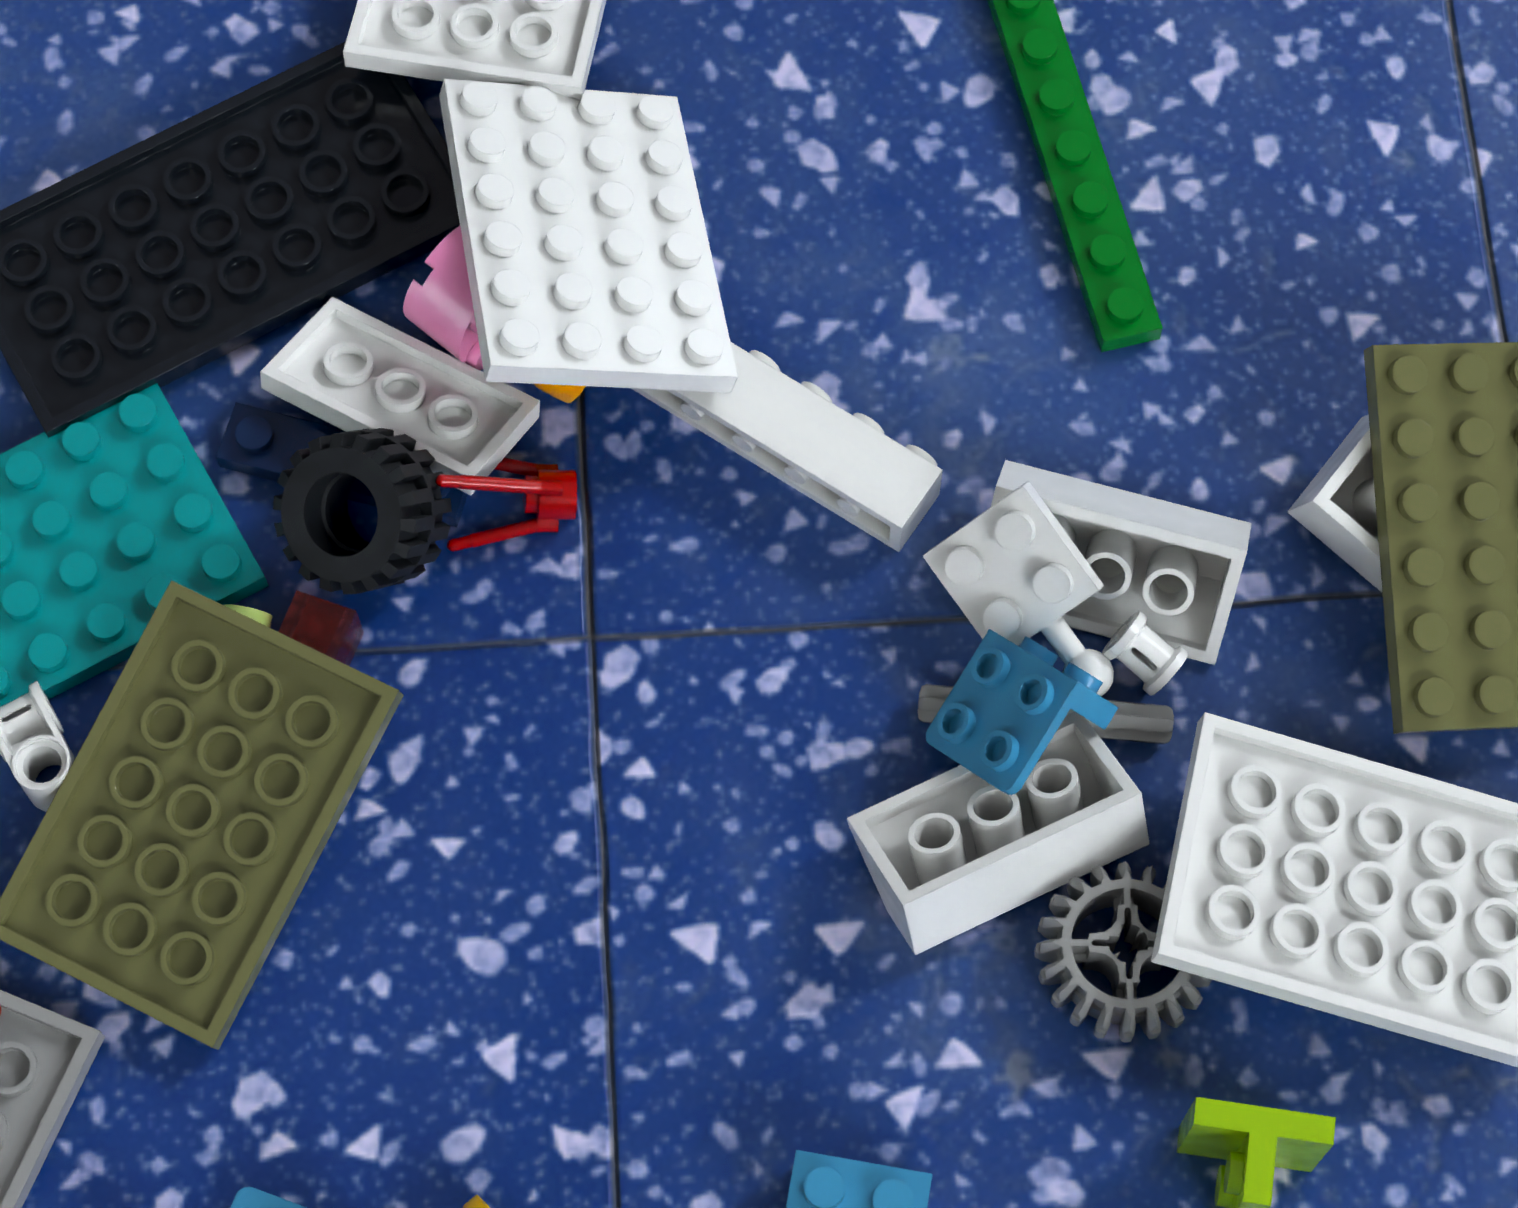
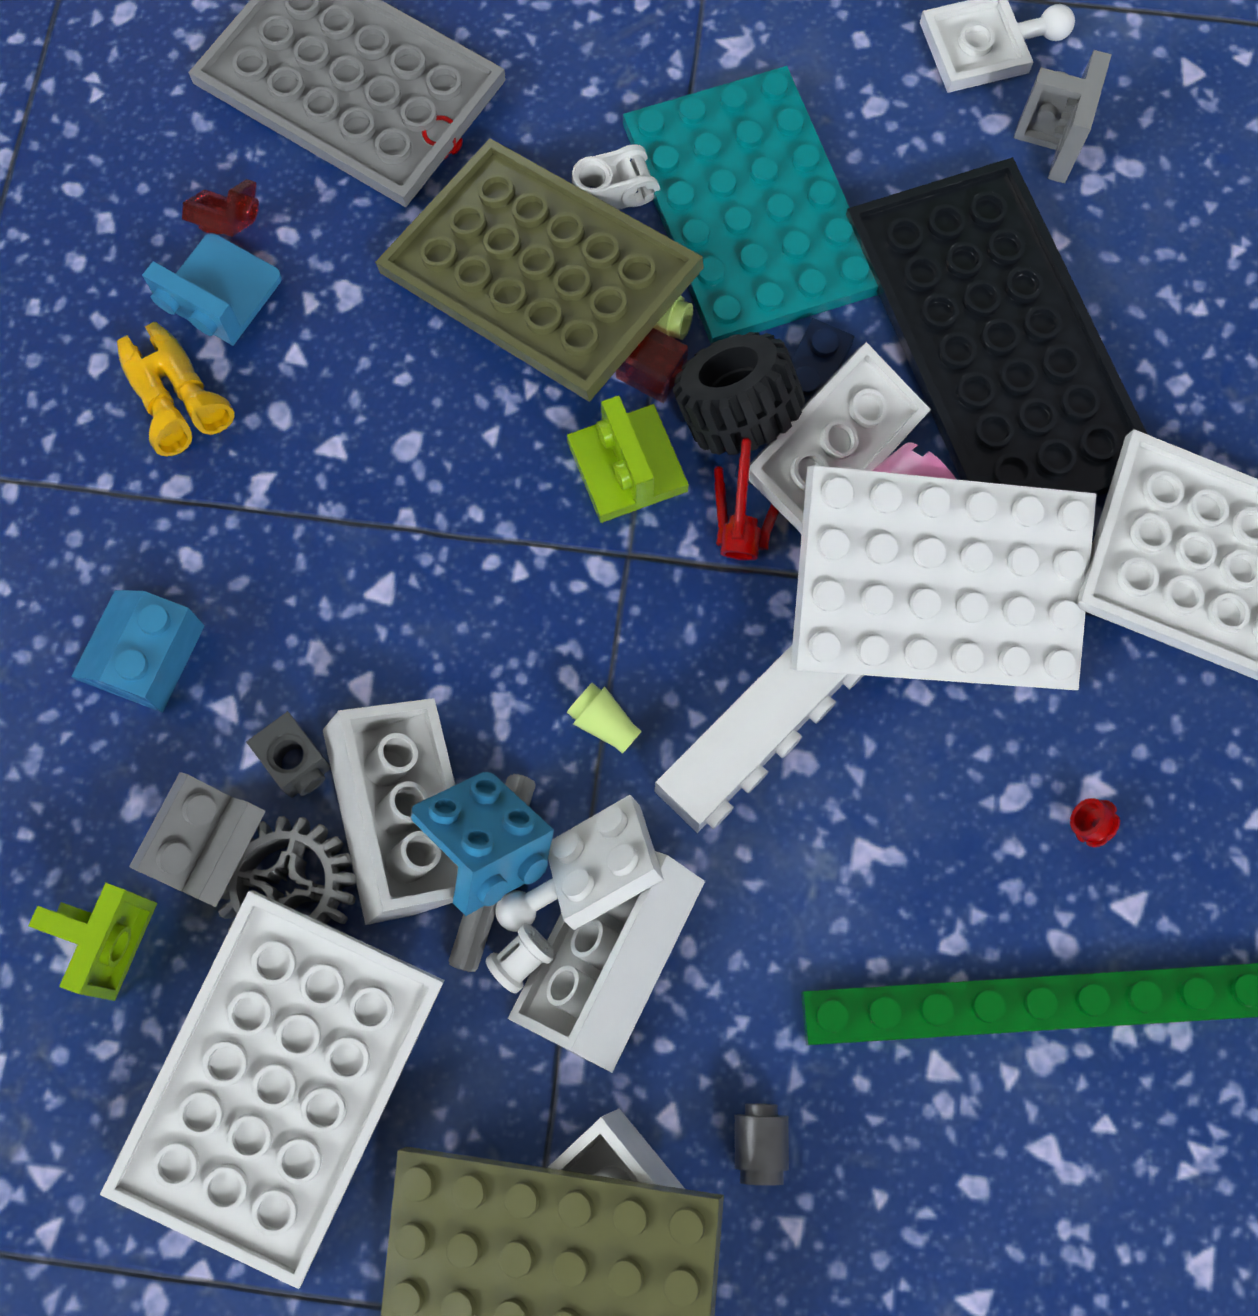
camera: 100 degrees right, 5 degrees up
(464, 657) = (626, 460): none -> lime bracket
(821, 622) = (603, 718): none -> yellowish green cone
(835, 77) = (1095, 821): none -> red plate
(946, 1013) = (277, 740): none -> dark grey brick
(1103, 1046) = (197, 839): none -> light grey bracket
(1285, 358) = (761, 1145): none -> flat silver brick

